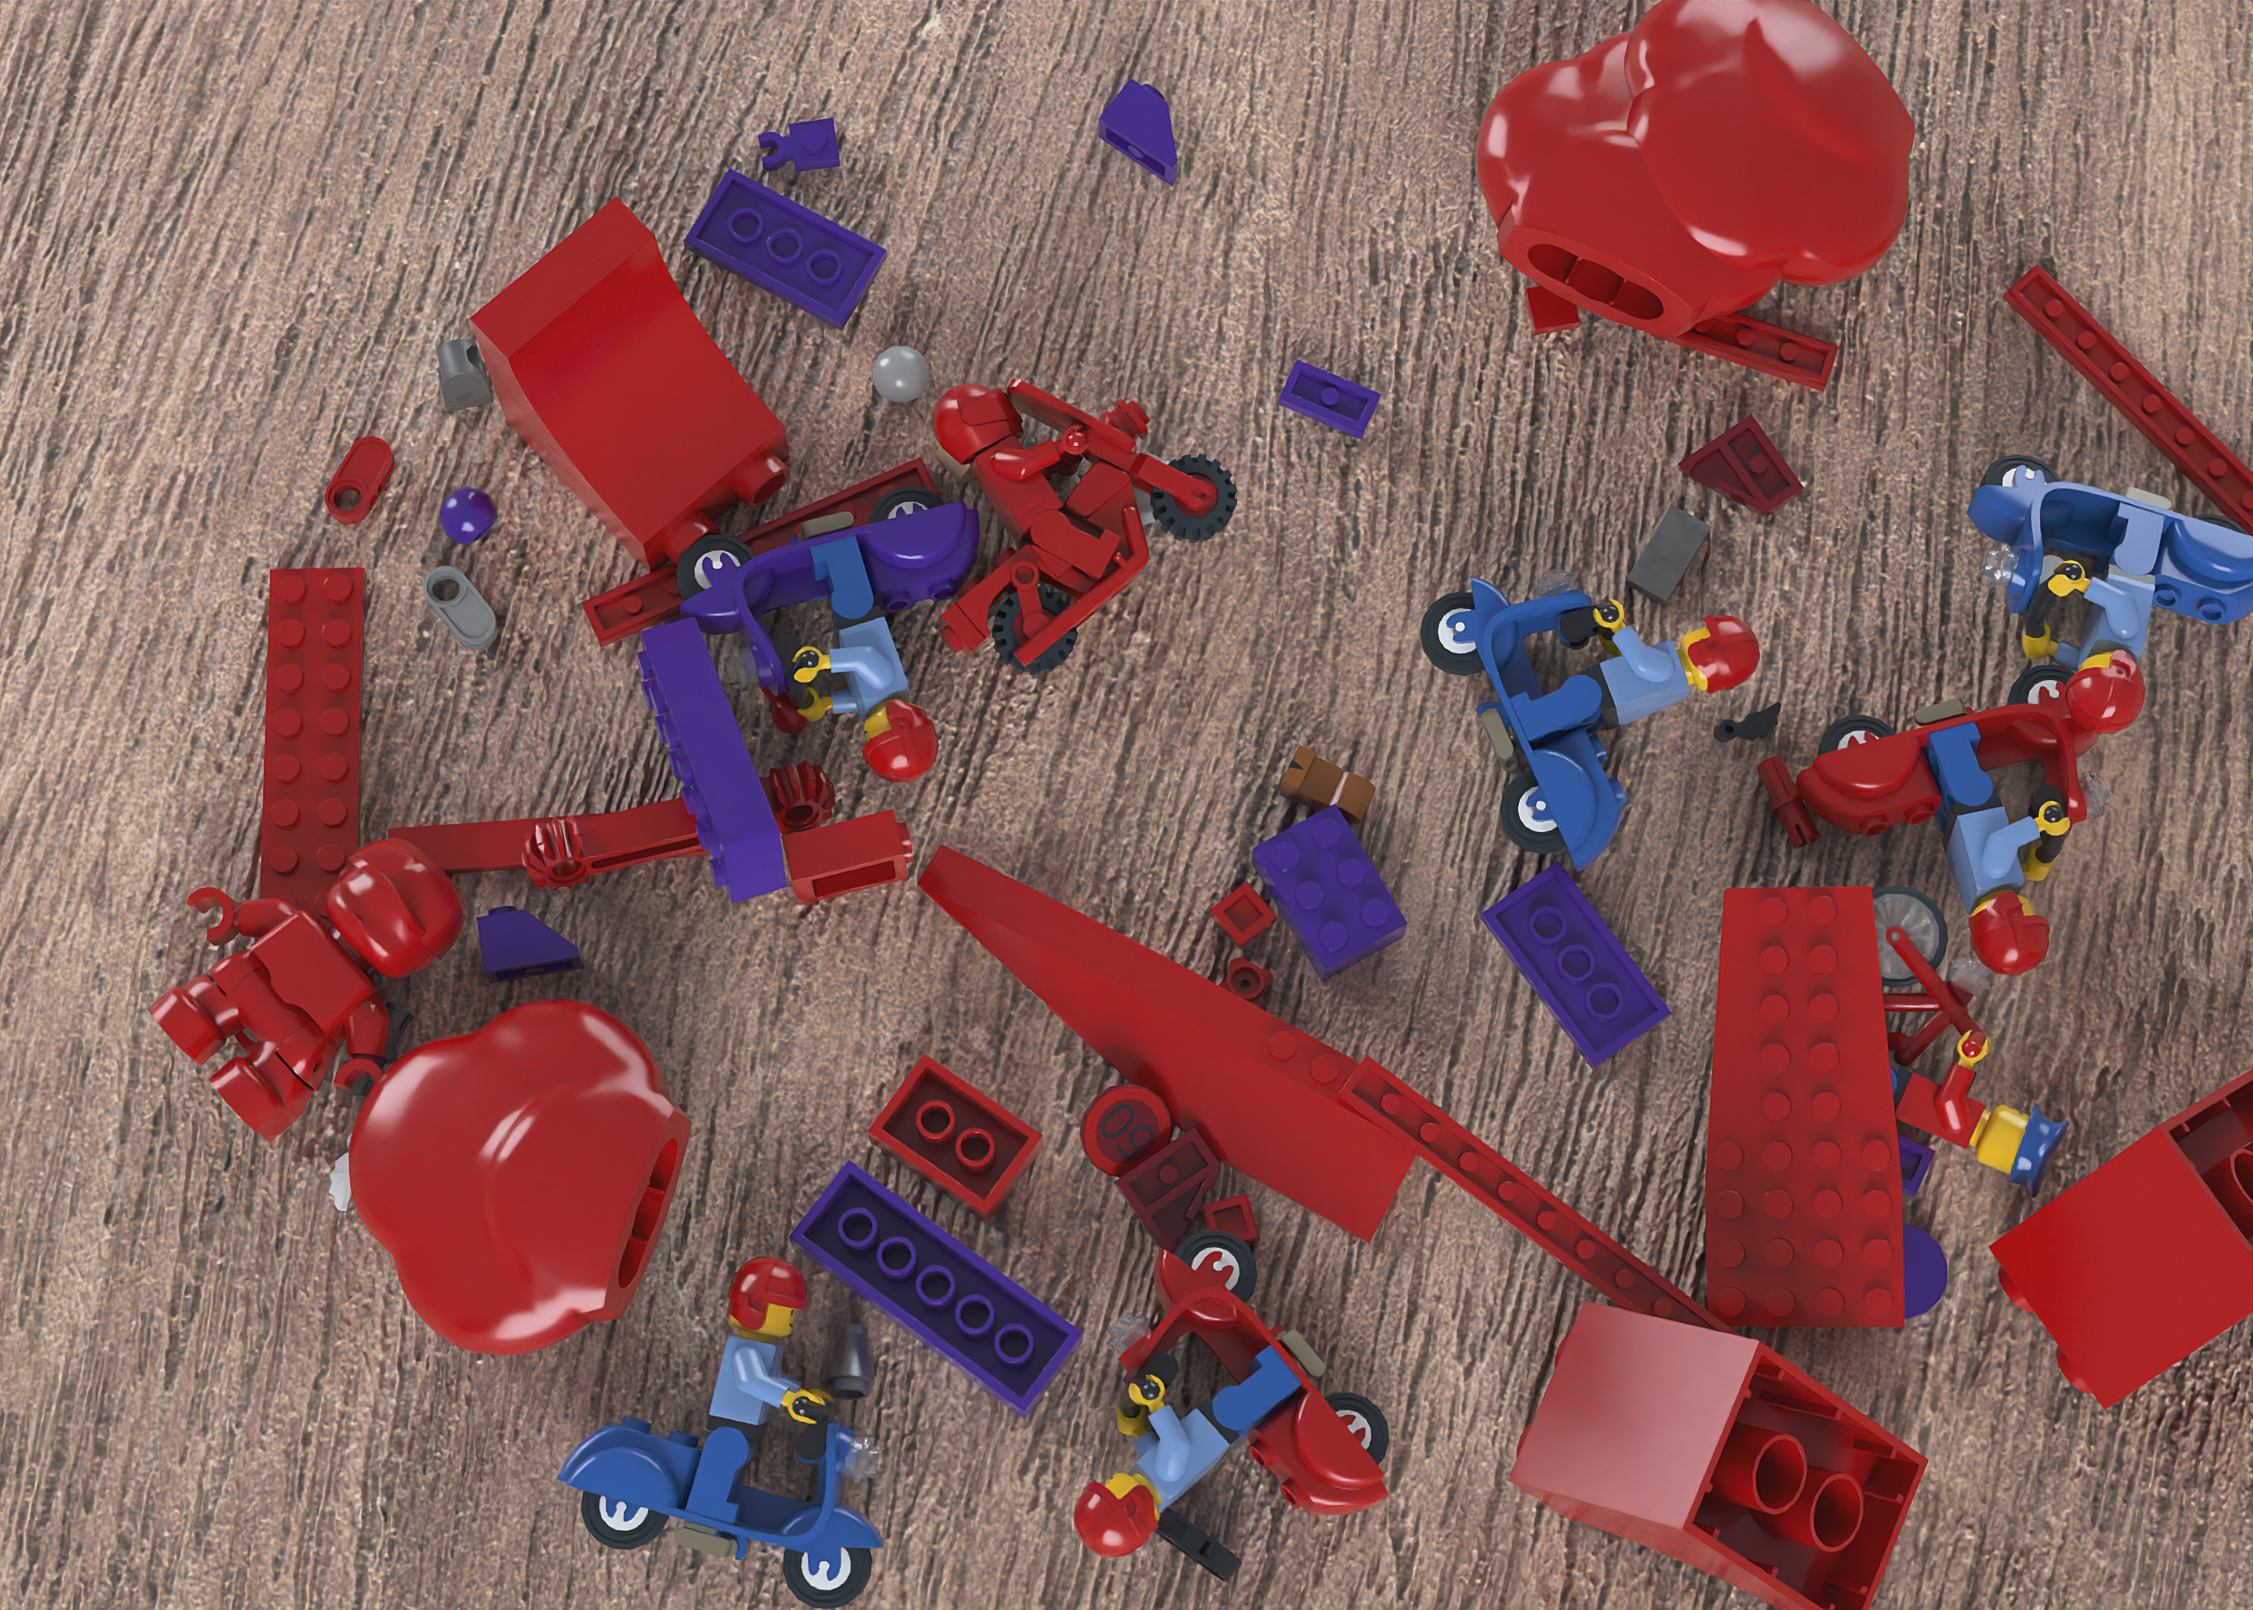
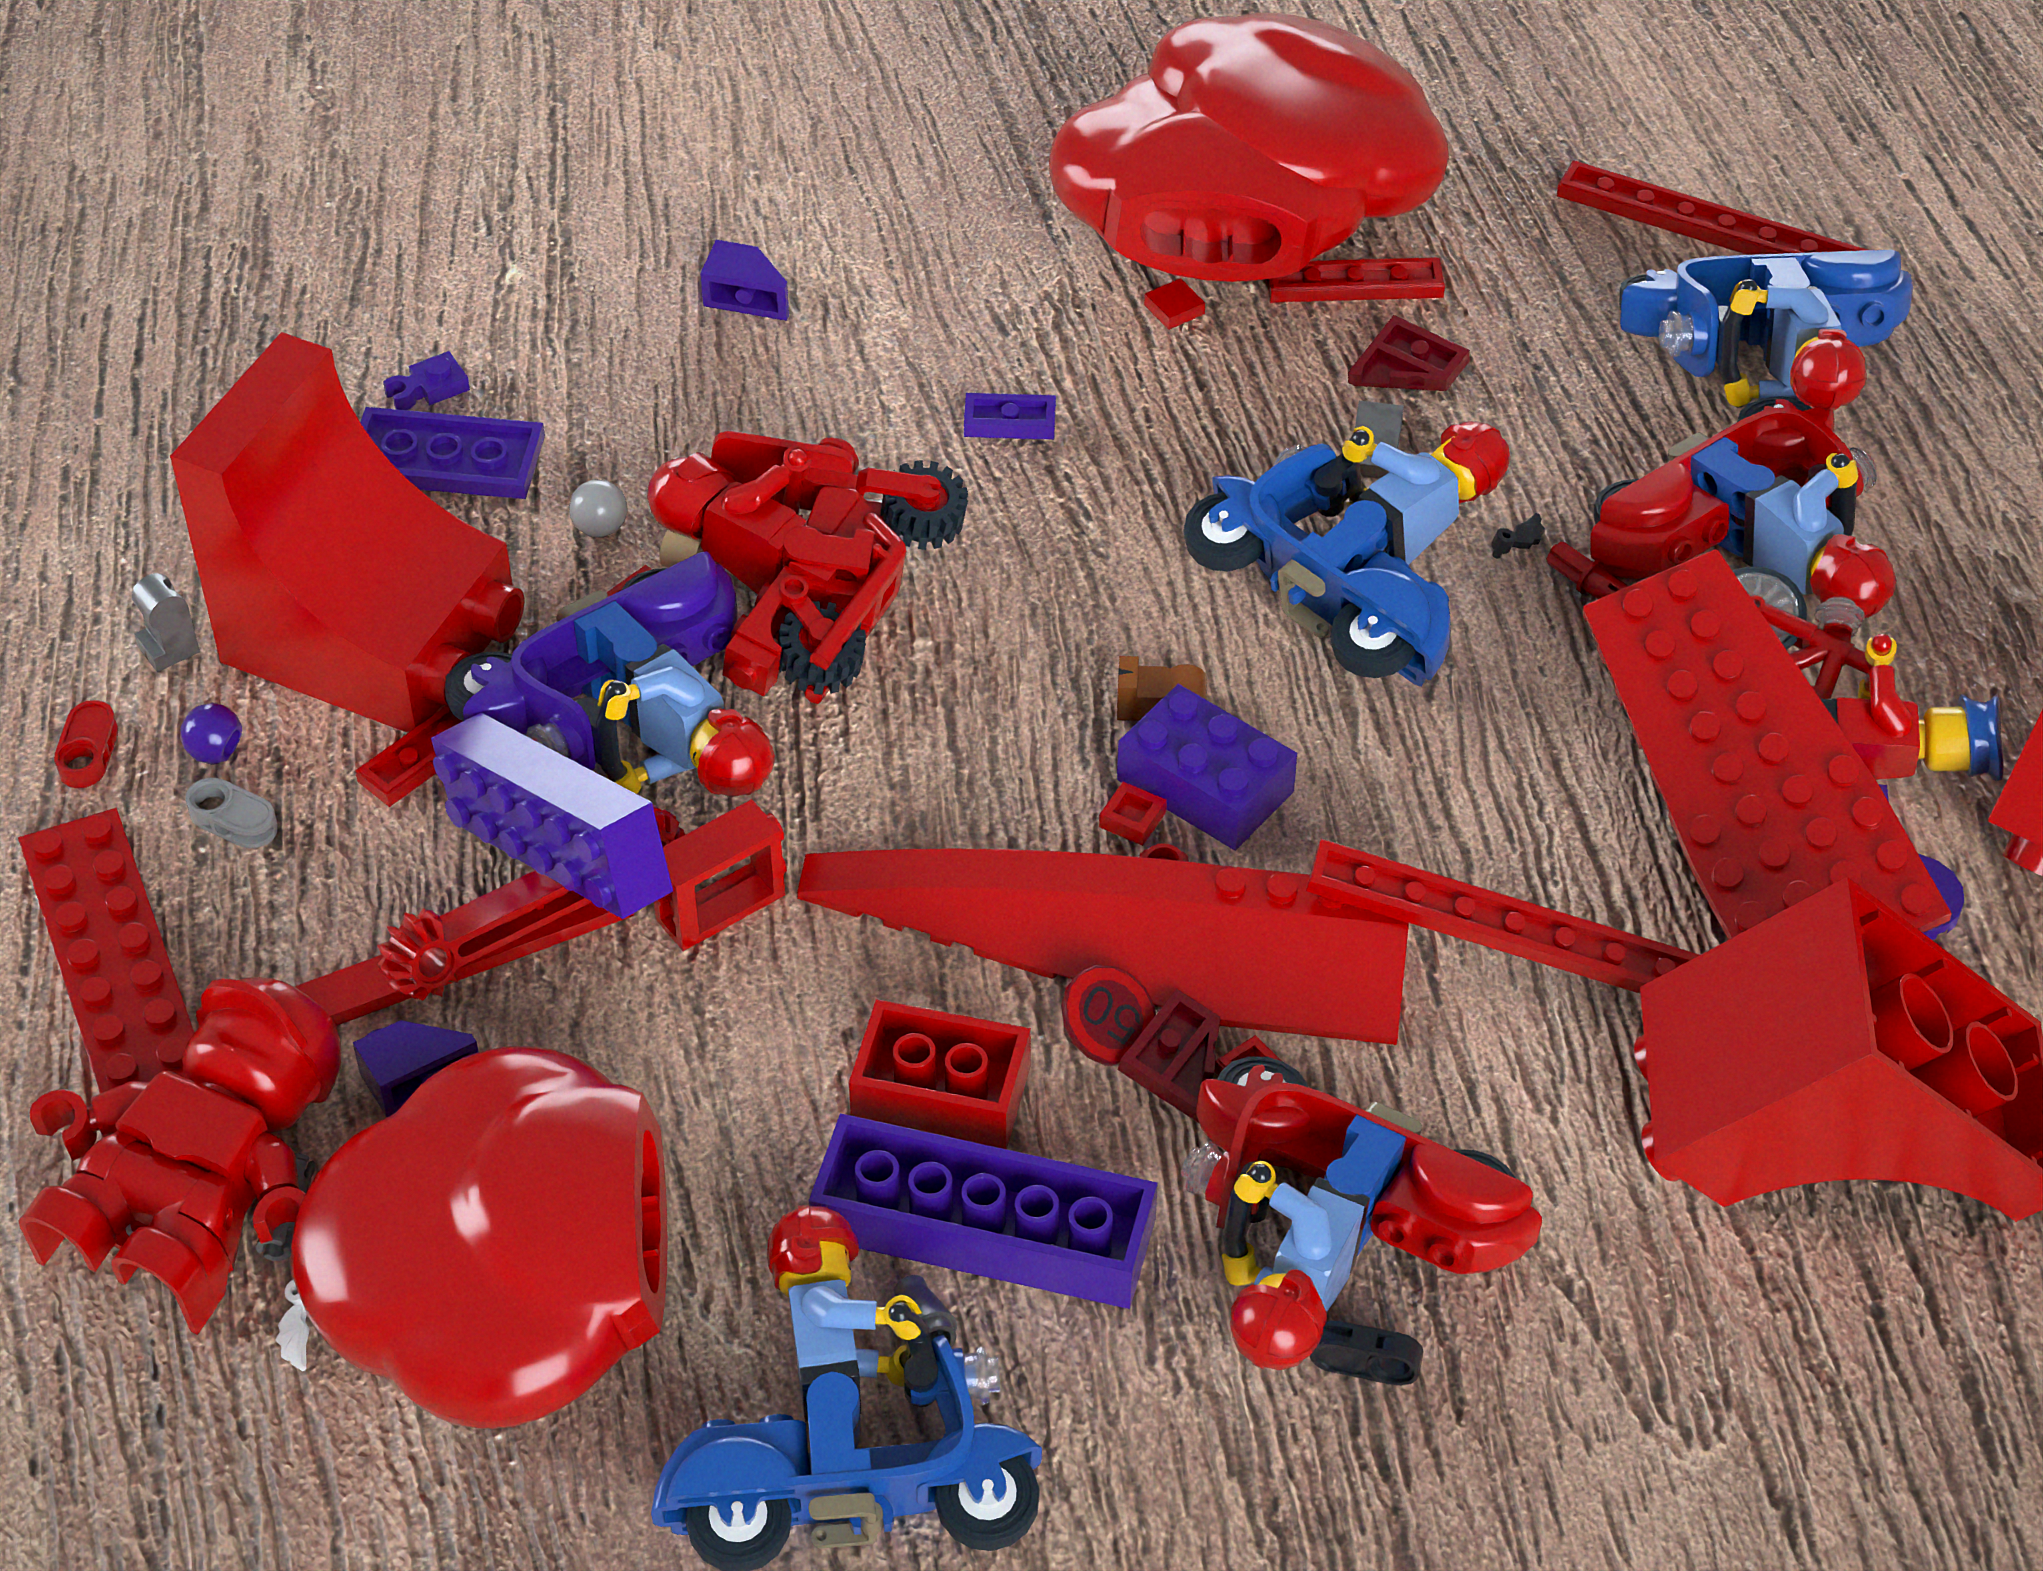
camera: 20 degrees left, 25 degrees down
(1575, 965) = (1469, 754): dark purple plate -> none

